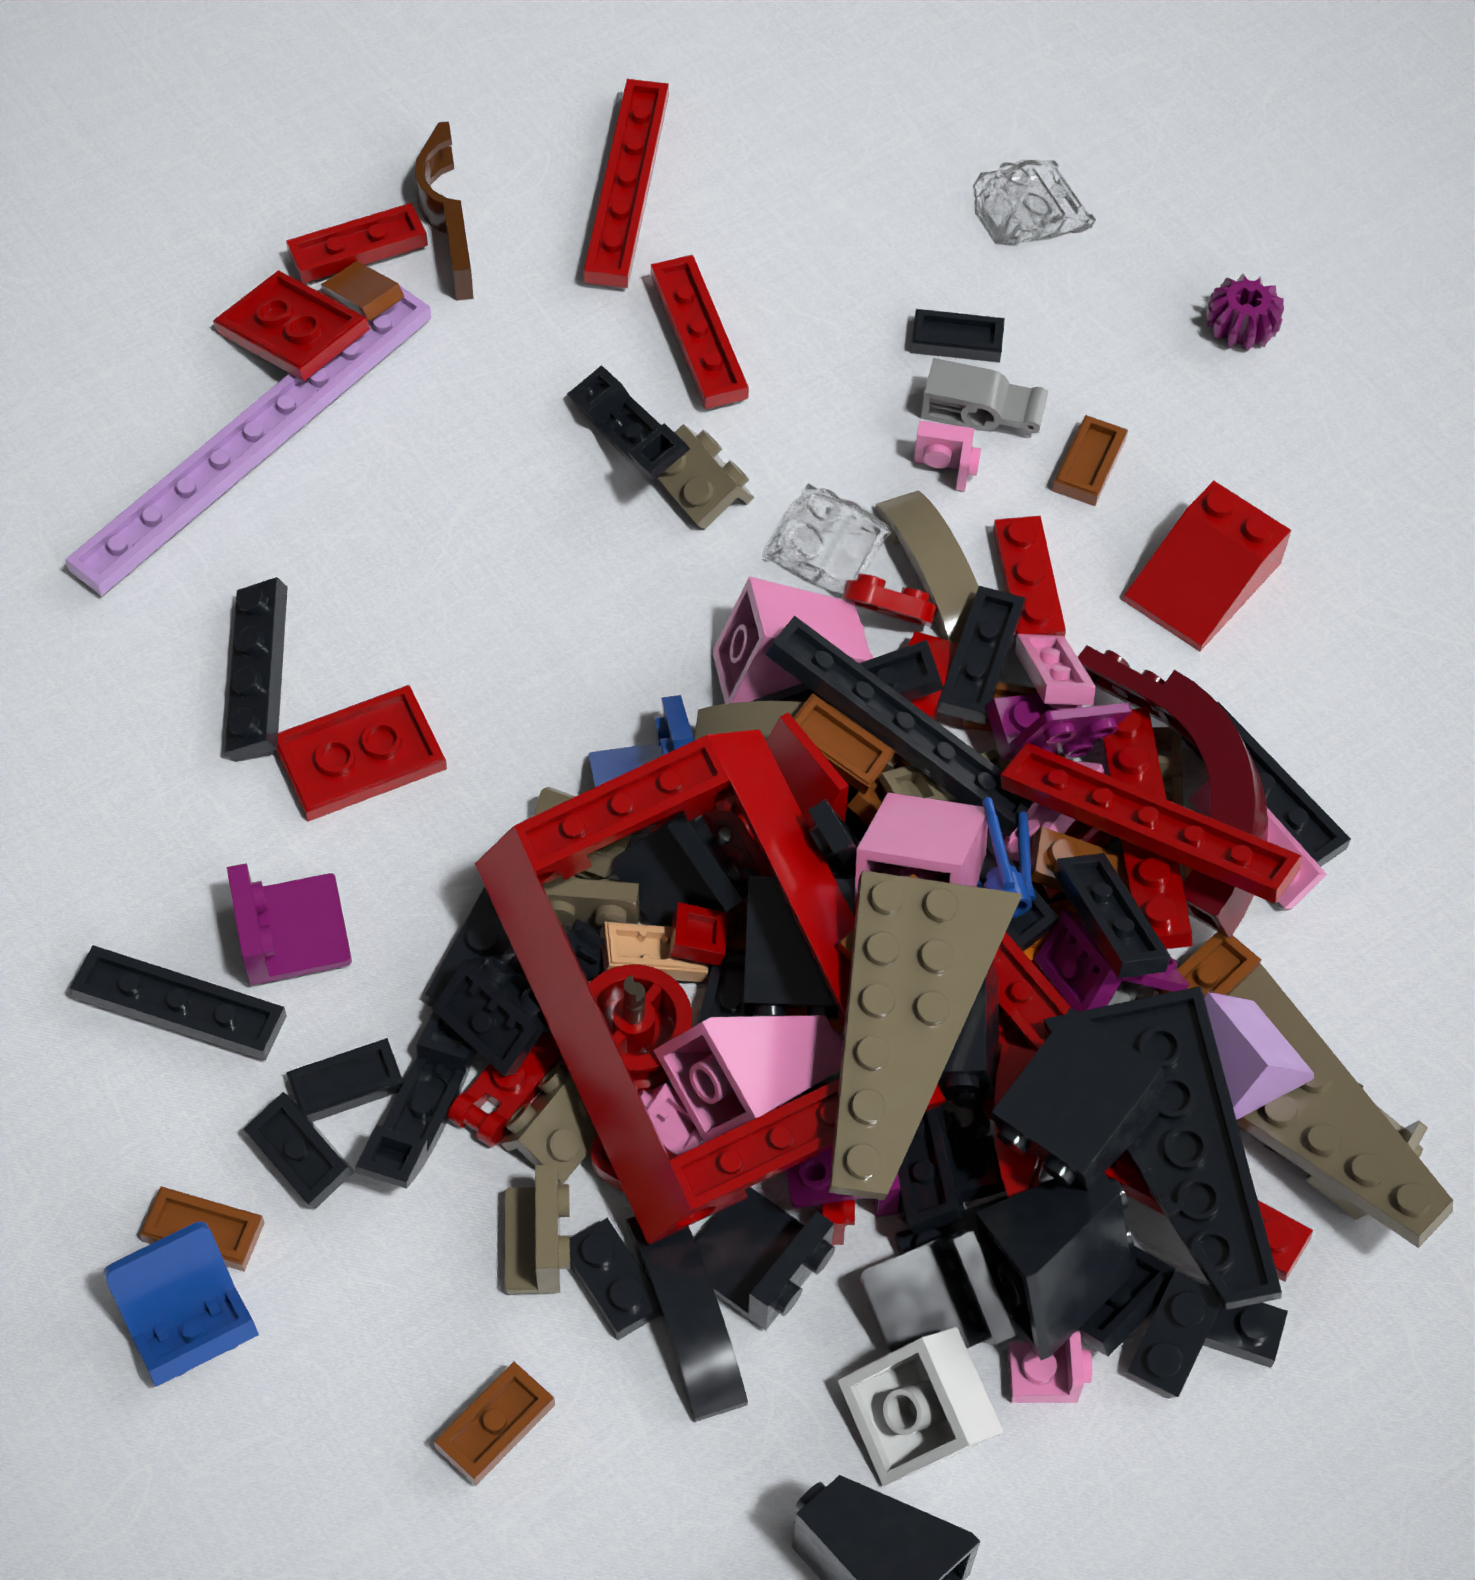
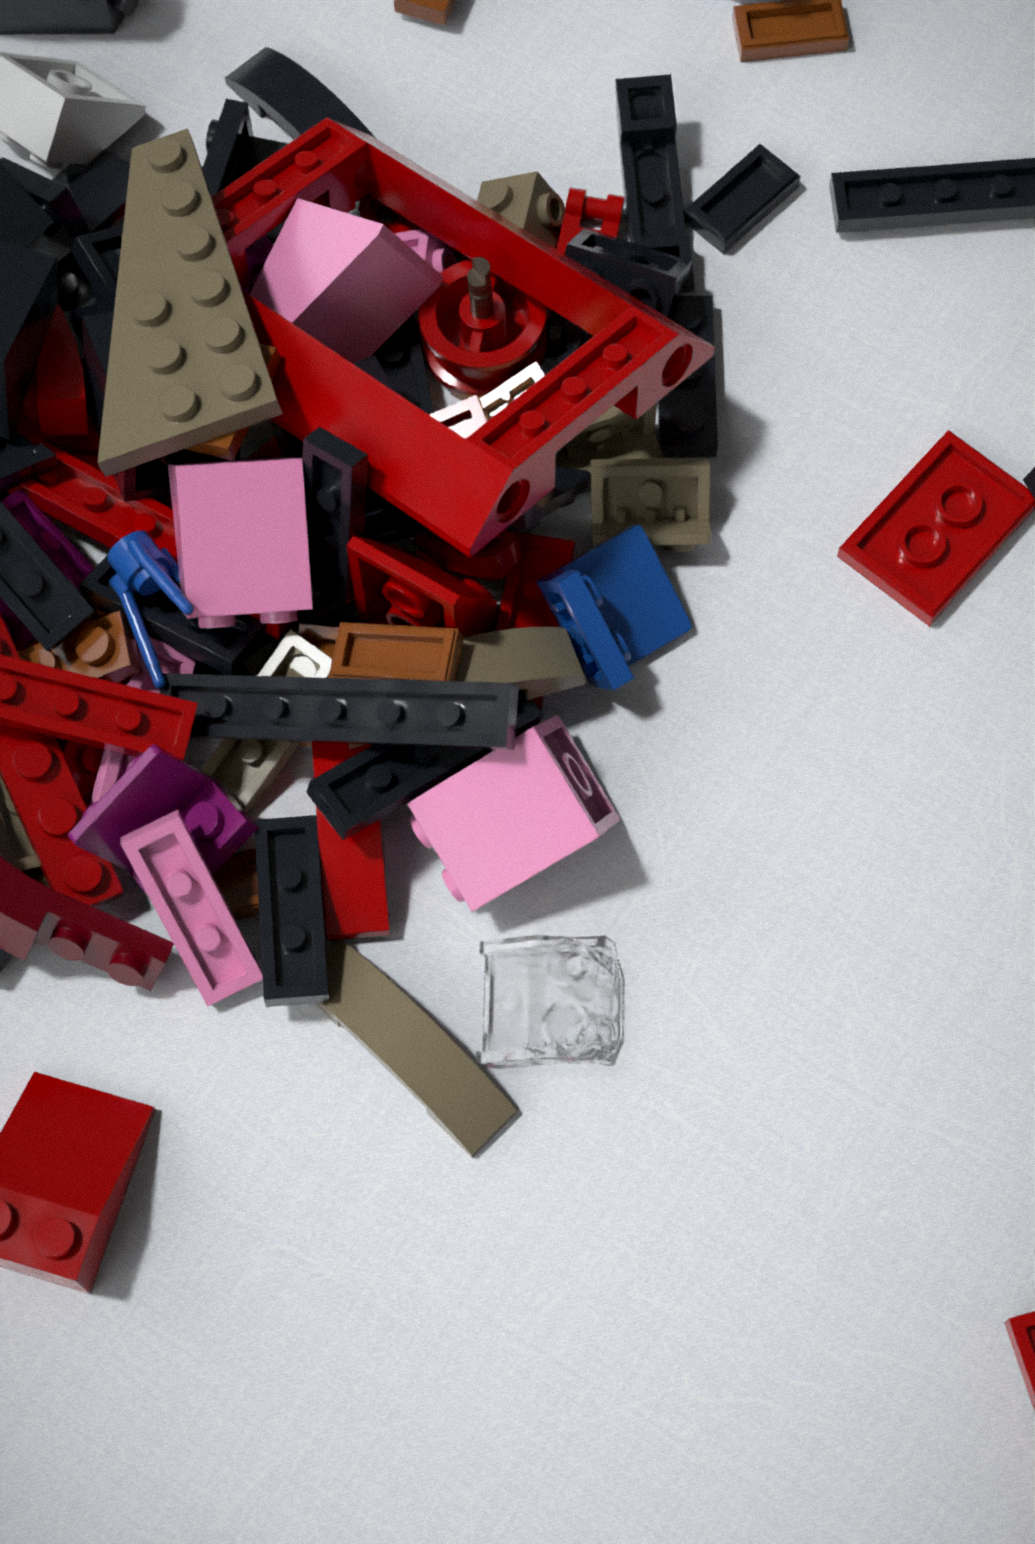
camera: 160 degrees right, 10 degrees up
(288, 926) = (893, 300): magenta bracket -> none
(299, 1150) = (742, 109): black plate -> none
(533, 1235) = (479, 118): dark tan bracket -> none
(612, 1279) = (402, 124): black plate -> none
(627, 424) = (864, 1063): black slope -> none
(699, 332) = (870, 1280): red plate -> none
(702, 480) = (750, 1045): dark tan bracket -> none
(907, 606) = (432, 938): red plate -> none
(947, 447) = (461, 1221): bright pink bracket -> none
(957, 335) = (522, 1447): black tile -> none
(980, 398) = (439, 1329): light grey piece -> none
(1029, 574) = (281, 1079): red plate -> none
(1090, 460) = (266, 1306): dark orange tile -> none

